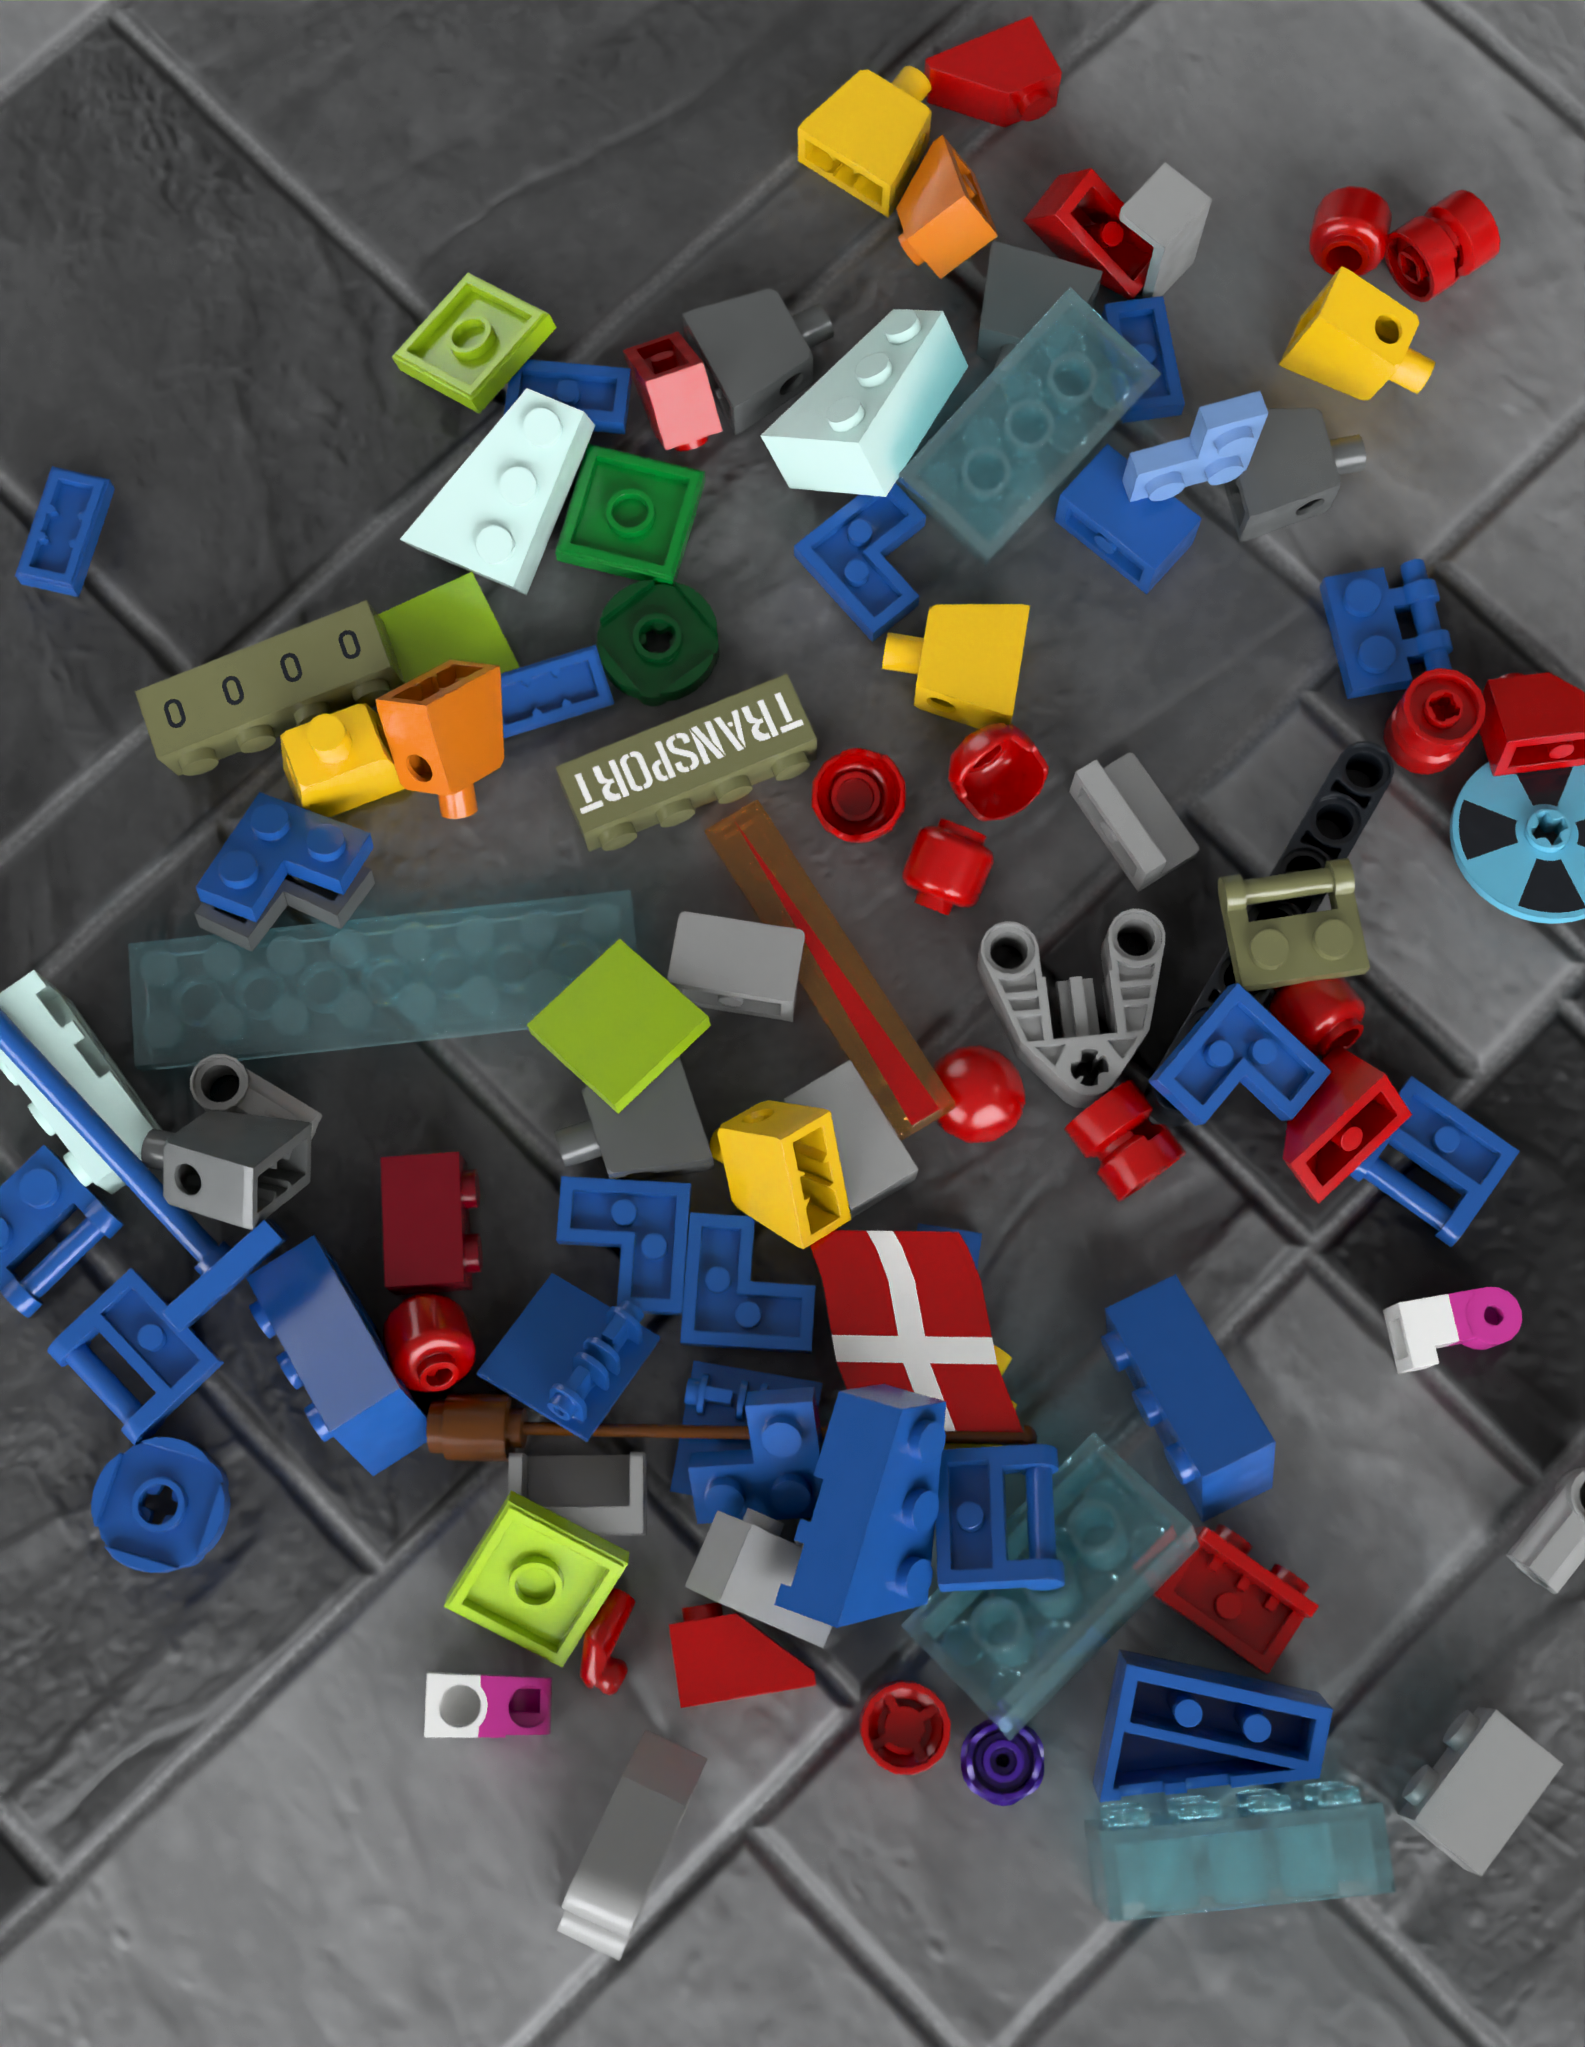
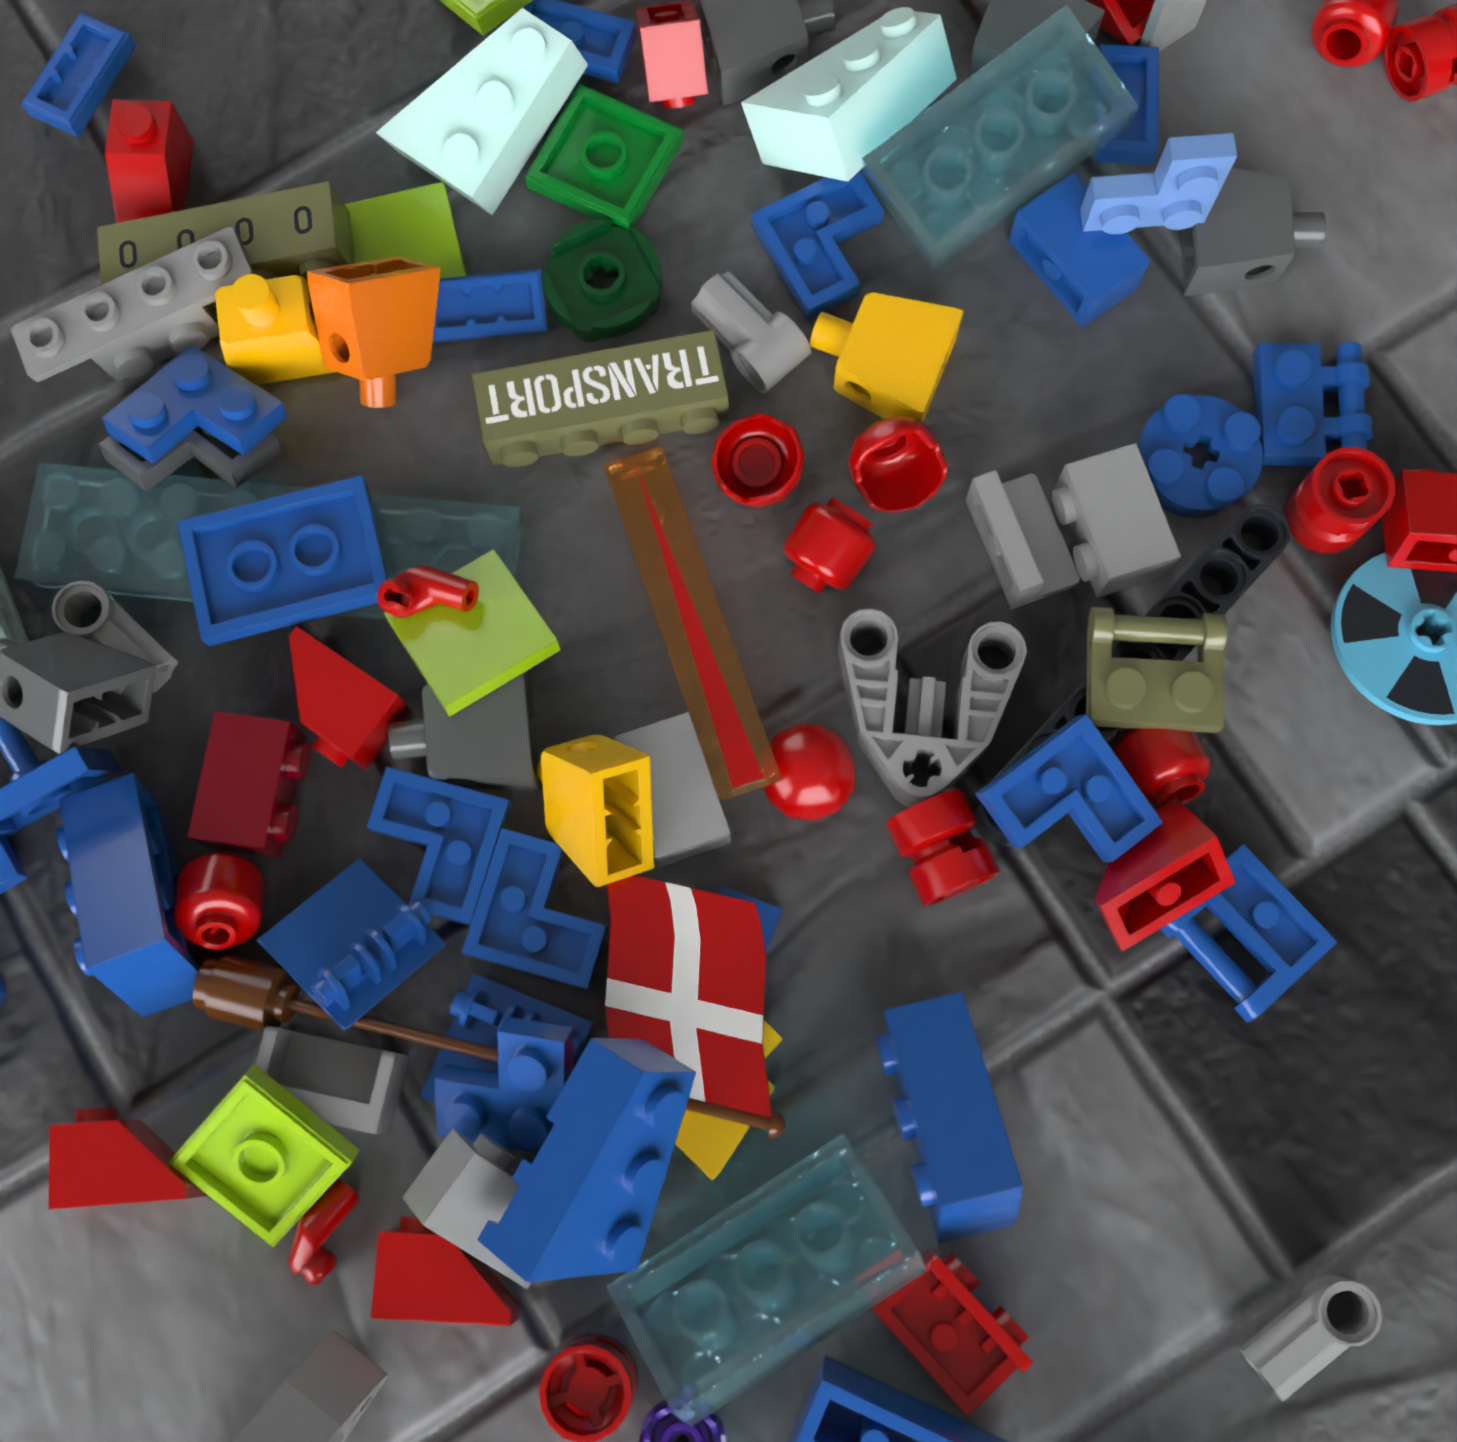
camera: 15 degrees right, 0 degrees up
(164, 612) = (147, 159): none -> red slope
(200, 771) = (137, 316): none -> light grey bracket
(387, 1621) = (111, 1163): none -> red slope
(413, 992) = (283, 560): none -> blue plate
(486, 1705) = (186, 1269): leg -> none
(501, 1122) = (341, 703): none -> red slope
(564, 992) = (424, 588): none -> red arm
(737, 965) = (601, 599): light grey panel -> none
(833, 675) = (759, 343): none -> light grey piece
(974, 1519) = (701, 1196): blue plate -> none
(1221, 785) = (1115, 521): none -> light grey brick
(1315, 678) = (1227, 435): none -> blue plate
(1357, 340) = (1340, 121): yellow torso -> none
(1468, 1317) = (1253, 1098): leg -> none

